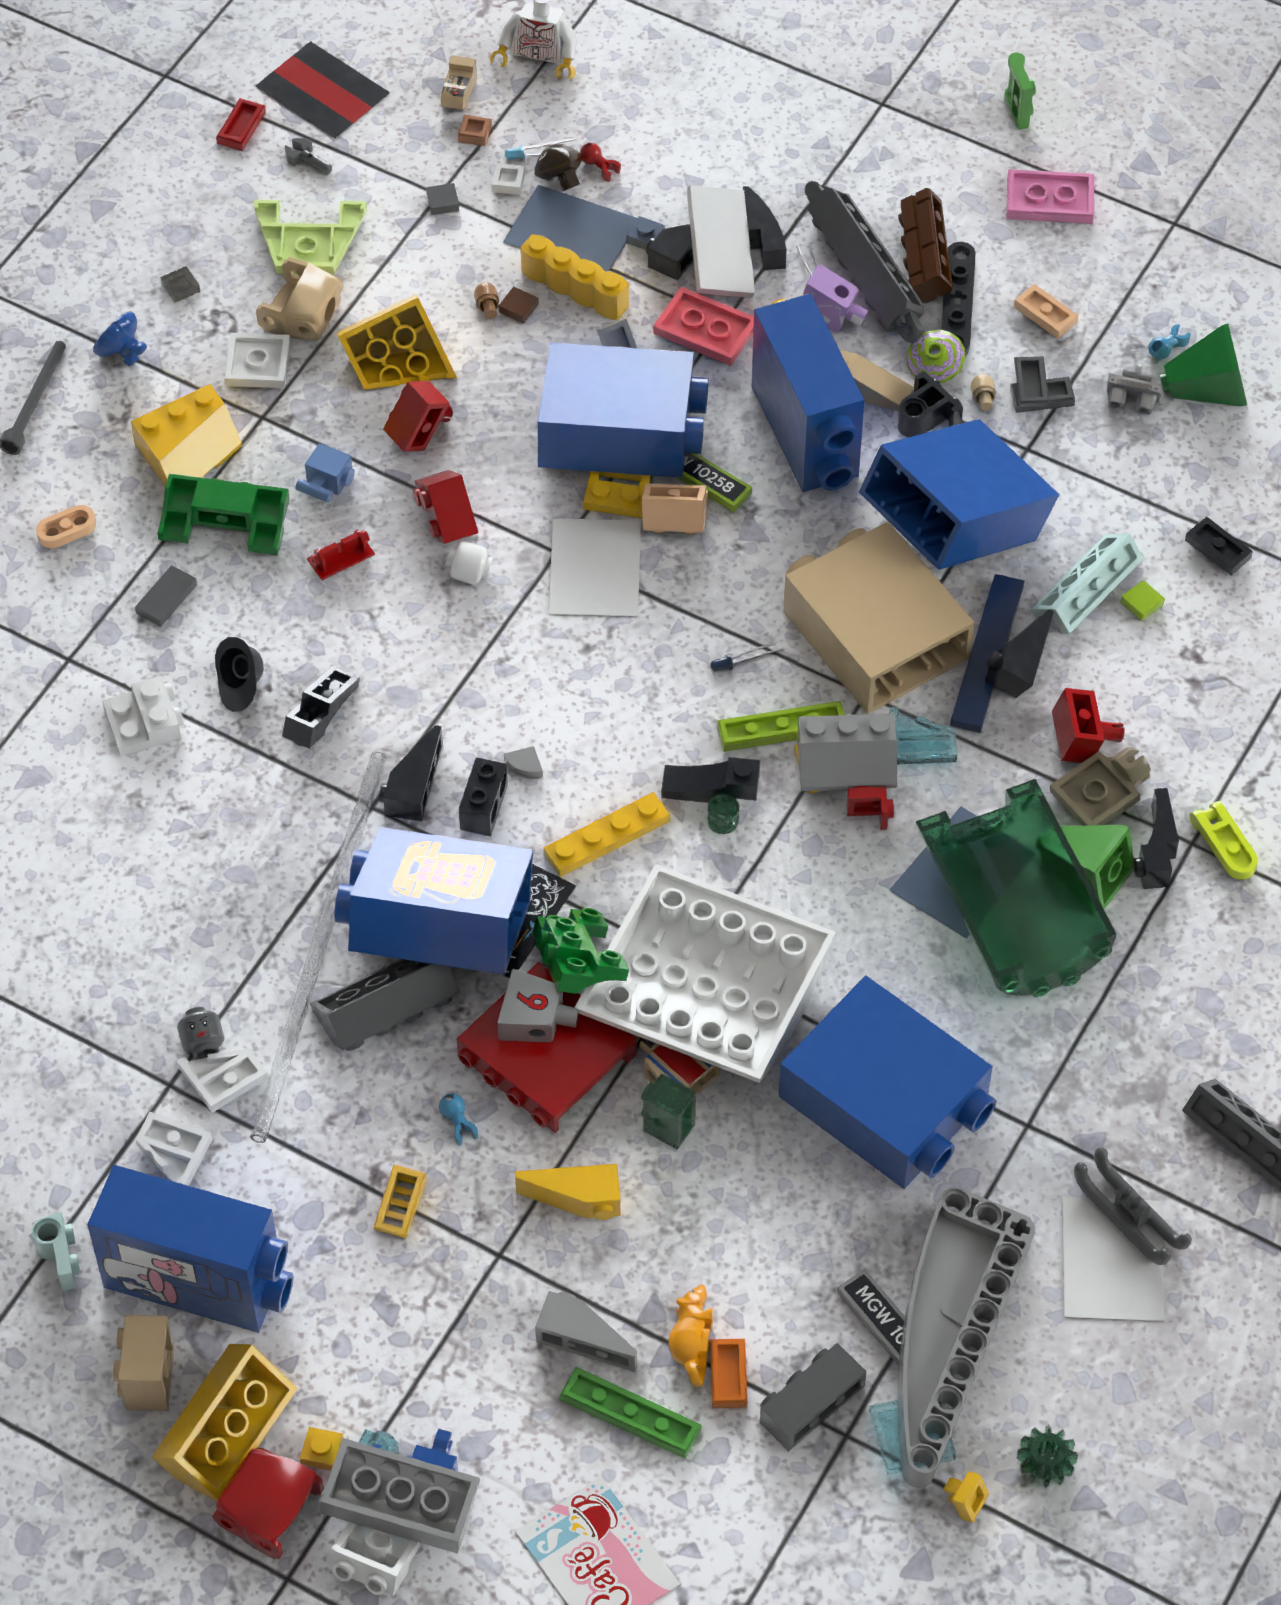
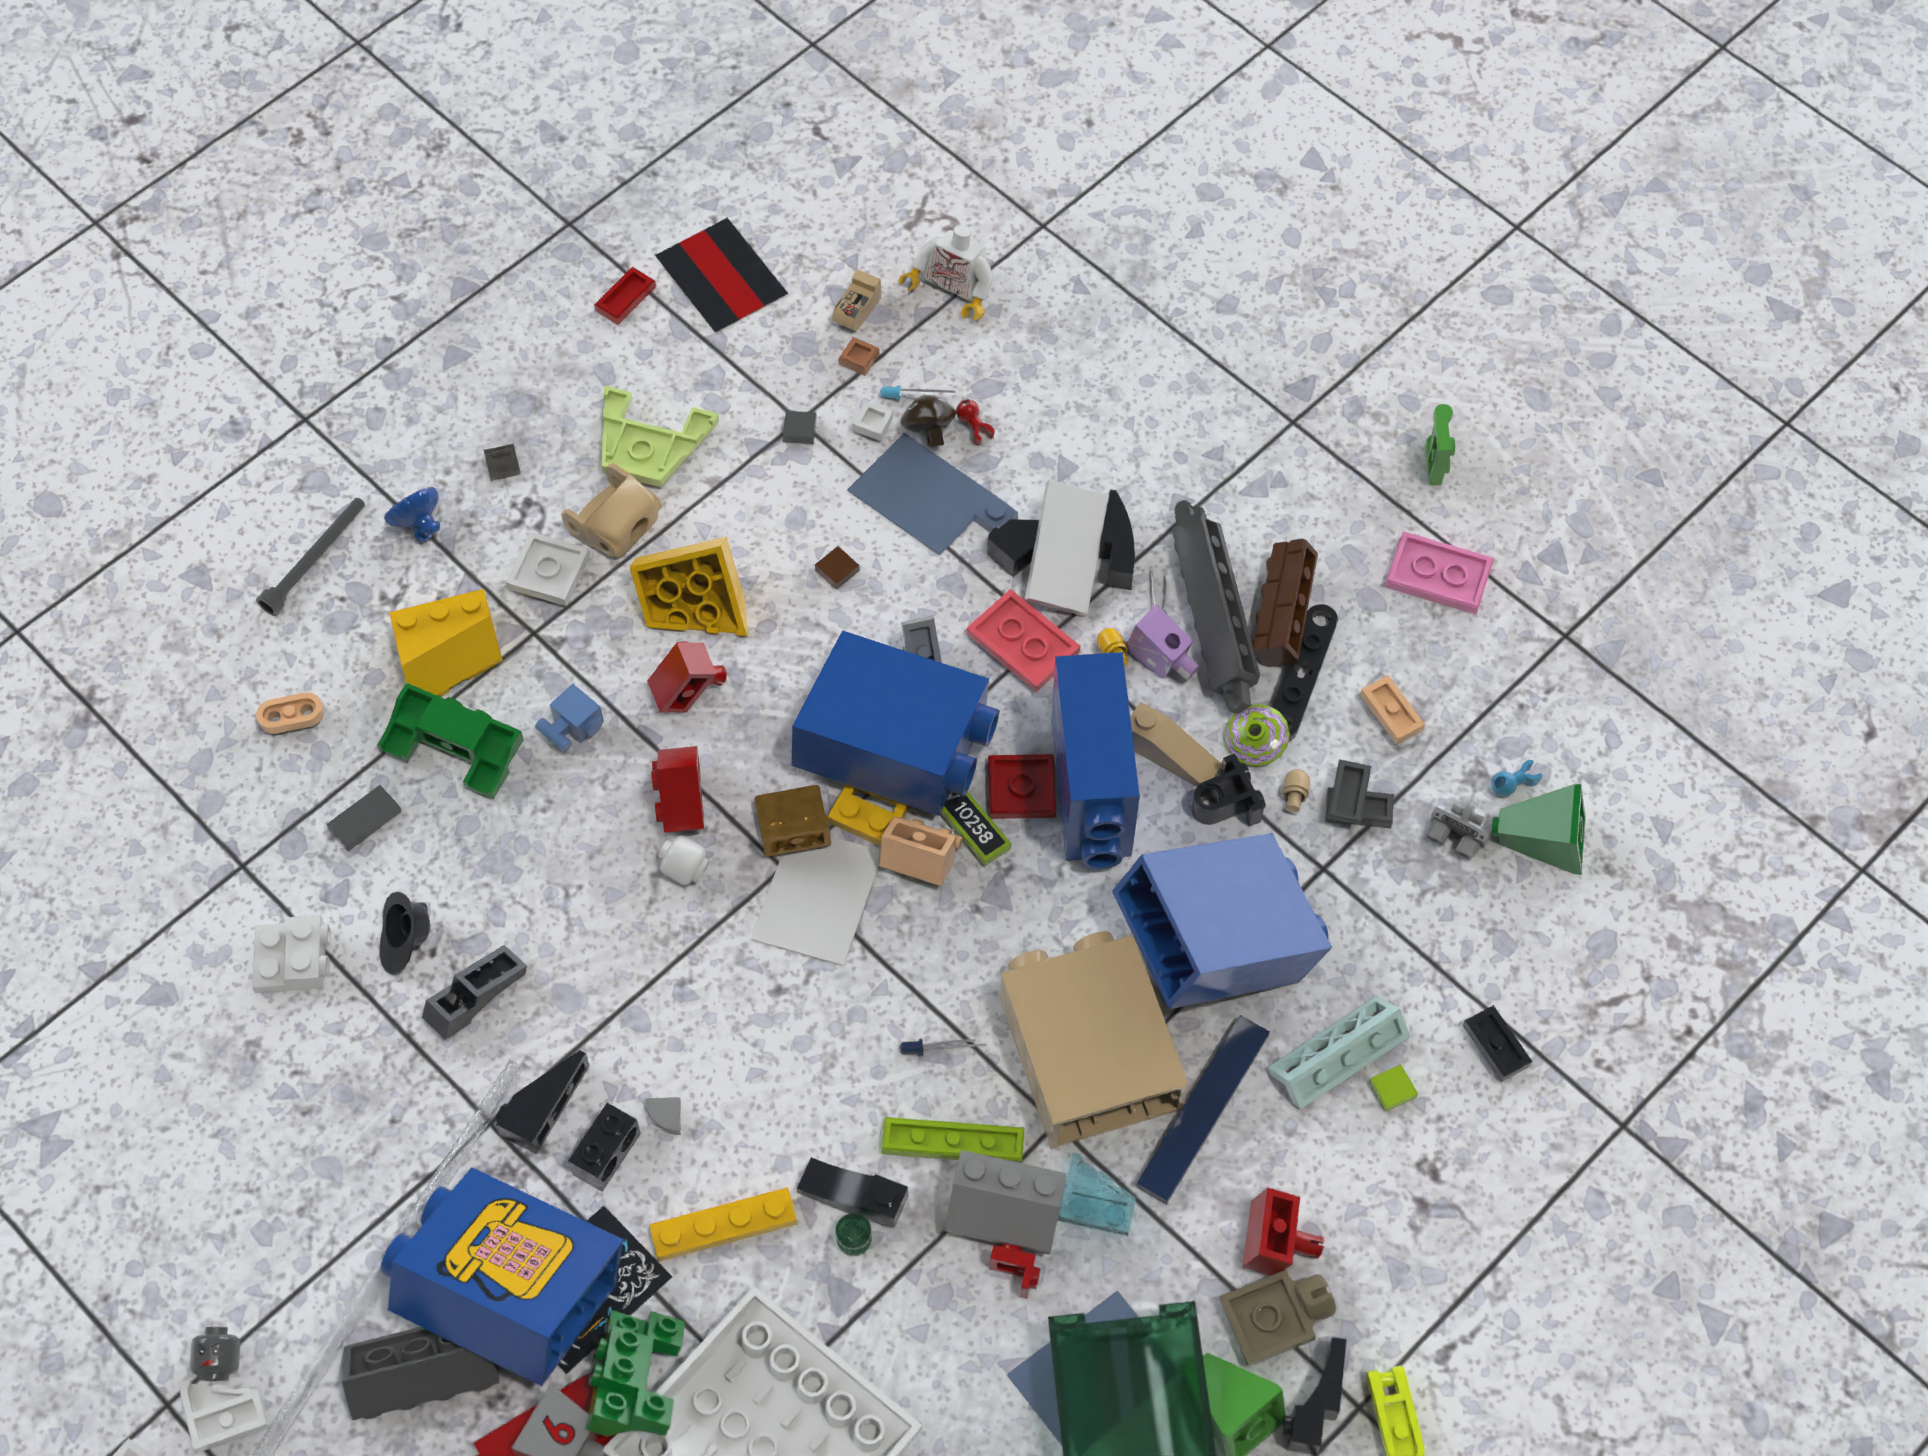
camera: 15 degrees right, 5 degrees up
(304, 155) = (666, 345): dark grey bar -> none
(342, 555) = (556, 816): red hinge -> none
(486, 299) = (806, 553): medium nougat cylinder -> none
(555, 511) = (792, 820): none -> pearl gold bracket
(575, 277) = (903, 551): yellow brick -> none
(744, 442) = (1021, 786): none -> red tile
(1017, 662) = (1229, 1131): black slope -> none

